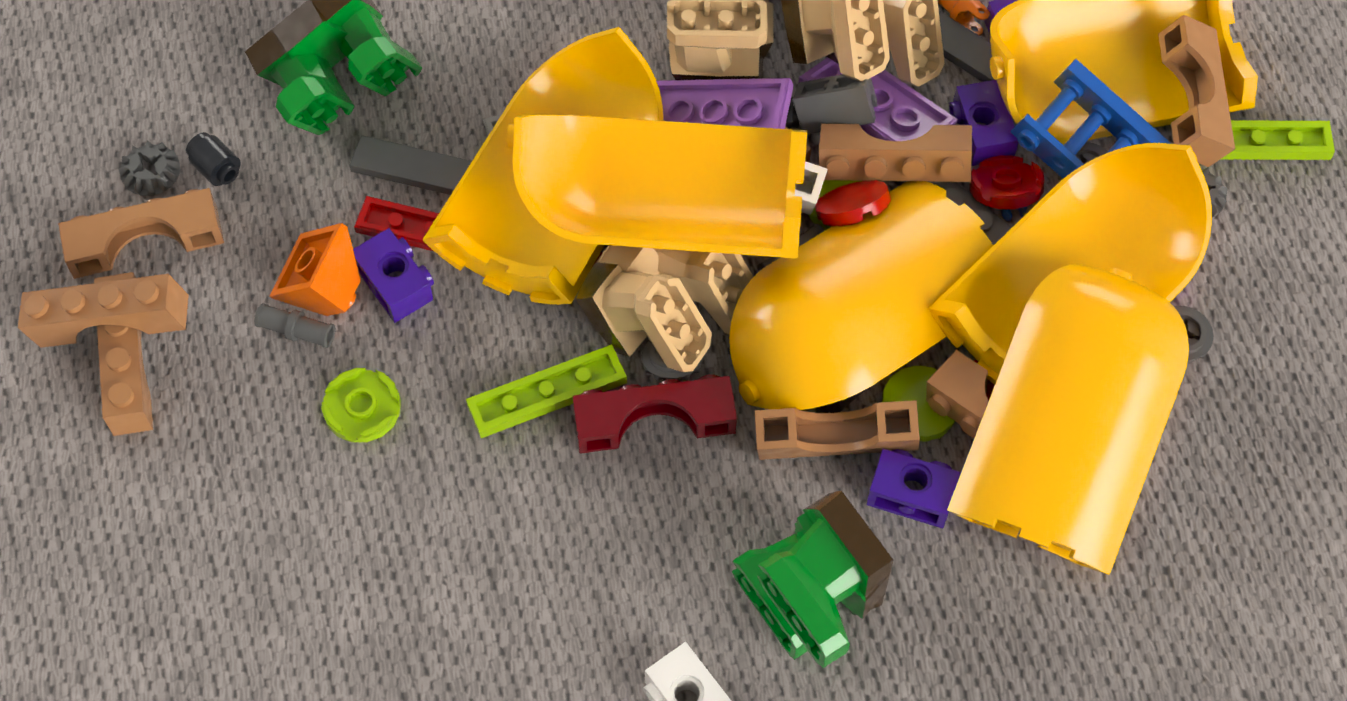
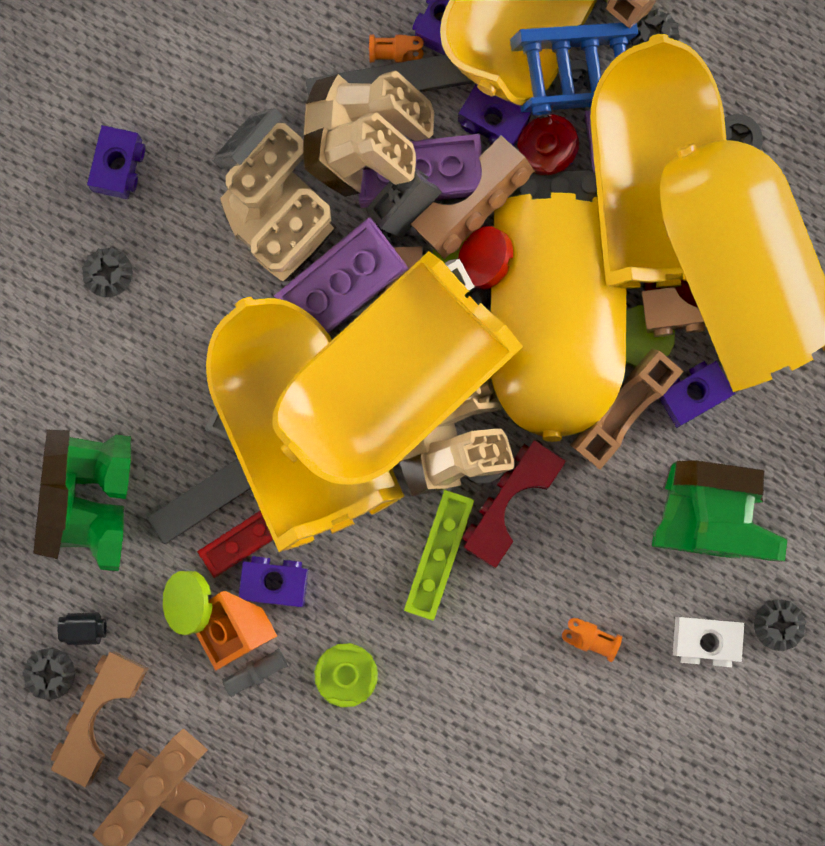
camera: 45 degrees left, 20 degrees up
(308, 217) = (187, 602): none -> lime tile
(591, 588) = (588, 637): none -> orange piece

